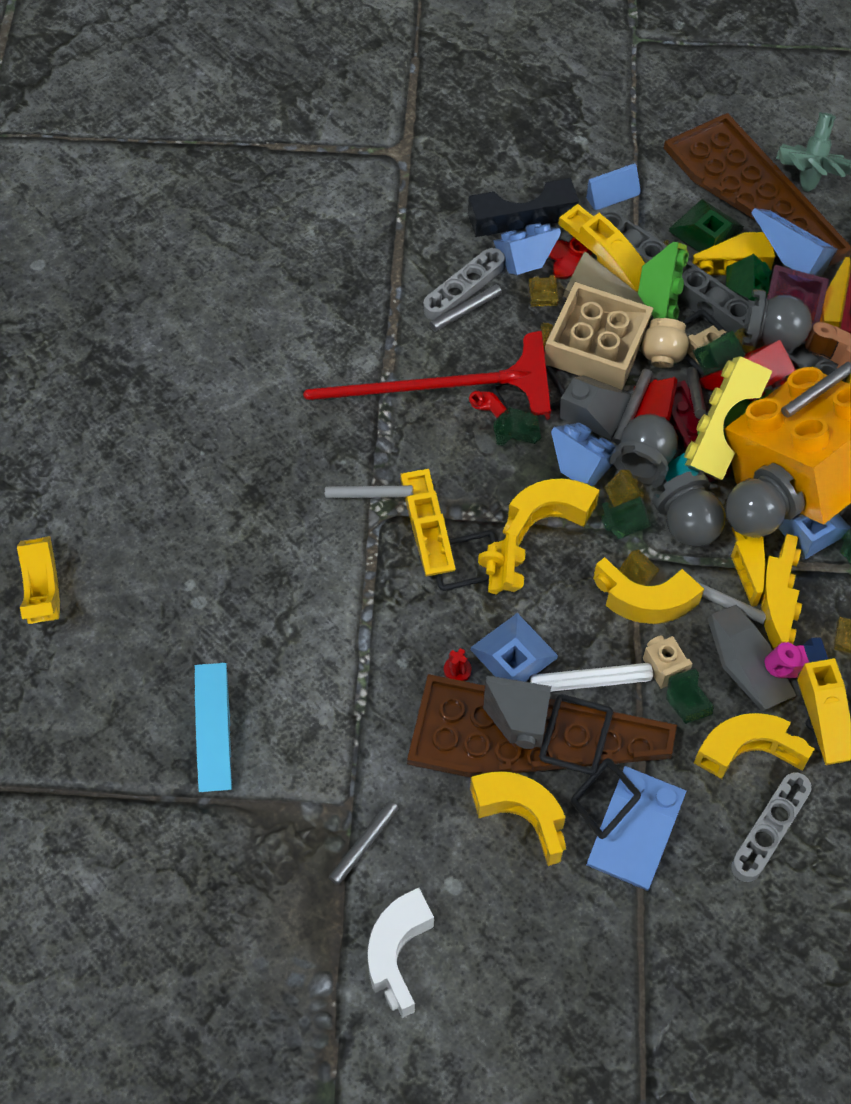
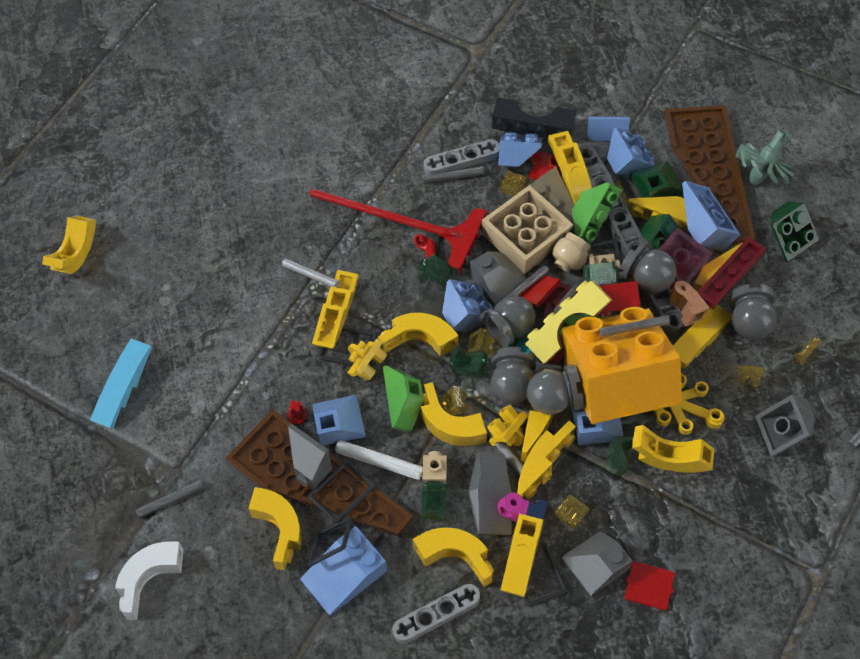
camera: 30 degrees right, 0 degrees up
(577, 589) = (404, 398): none -> bright green slope
(655, 206) = (628, 153): none -> medium blue slope
(721, 571) = (509, 430): none -> yellow hips

